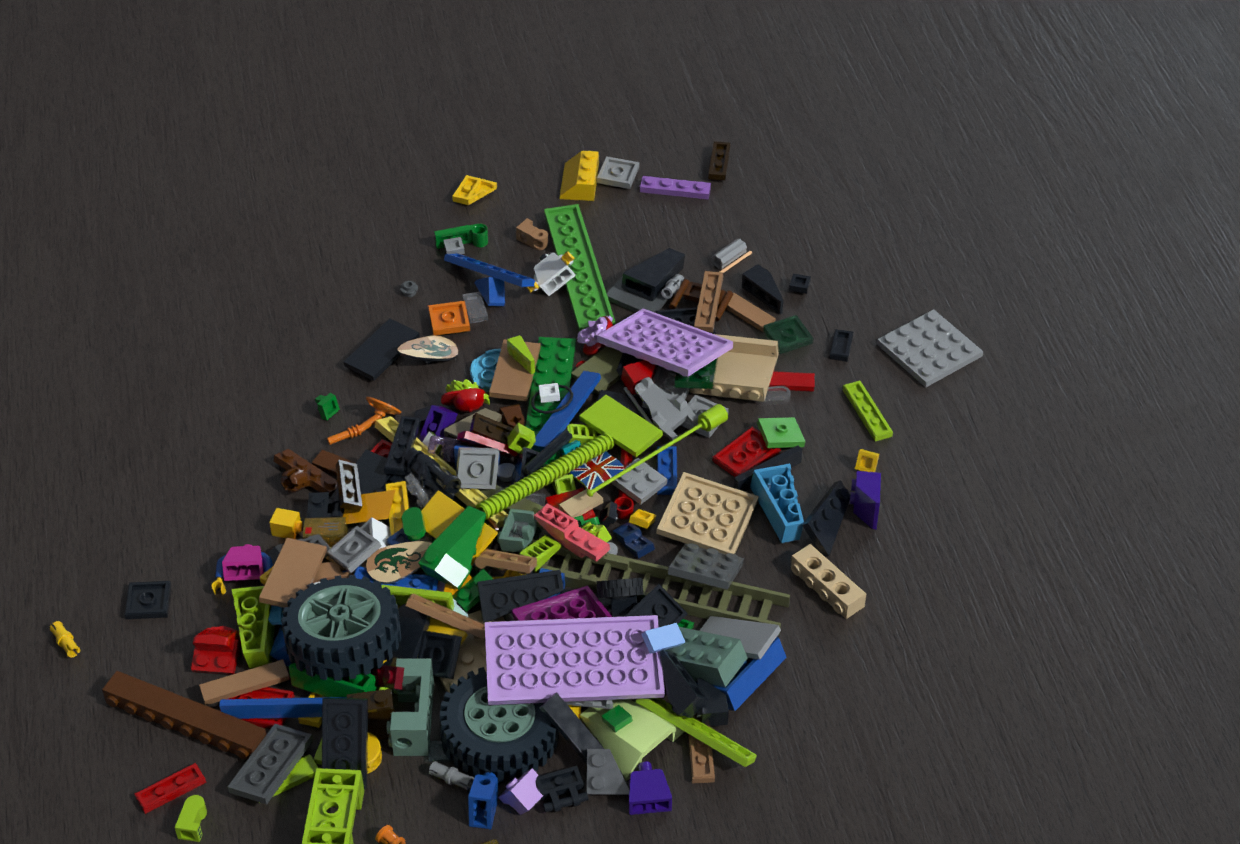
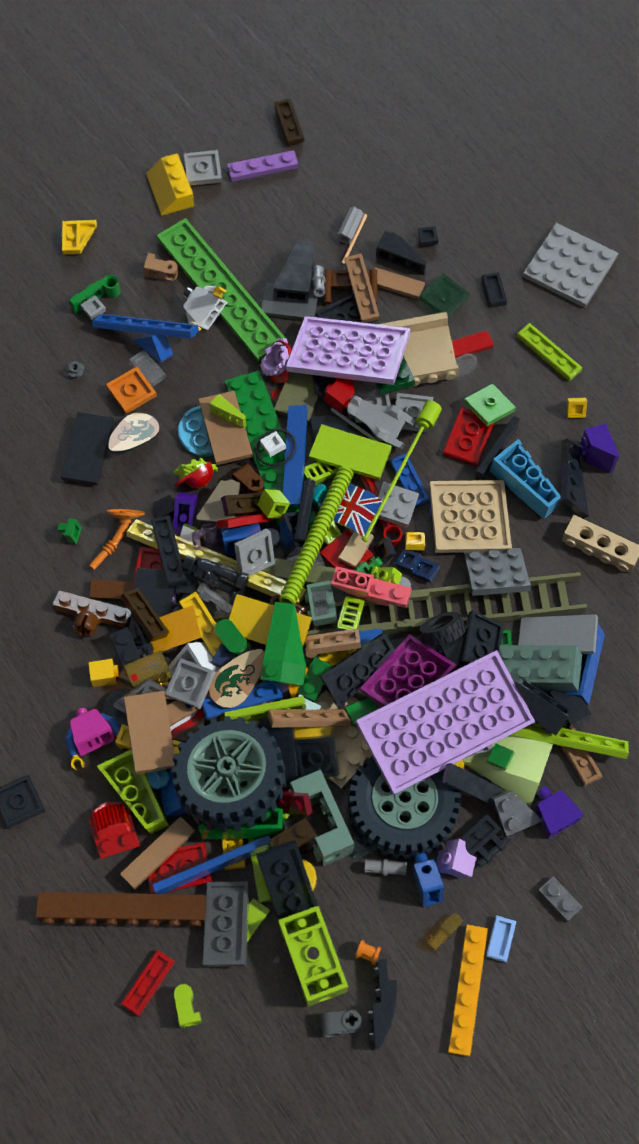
camera: 25 degrees left, 20 degrees up
(663, 638) = (512, 671): light blue tile -> none

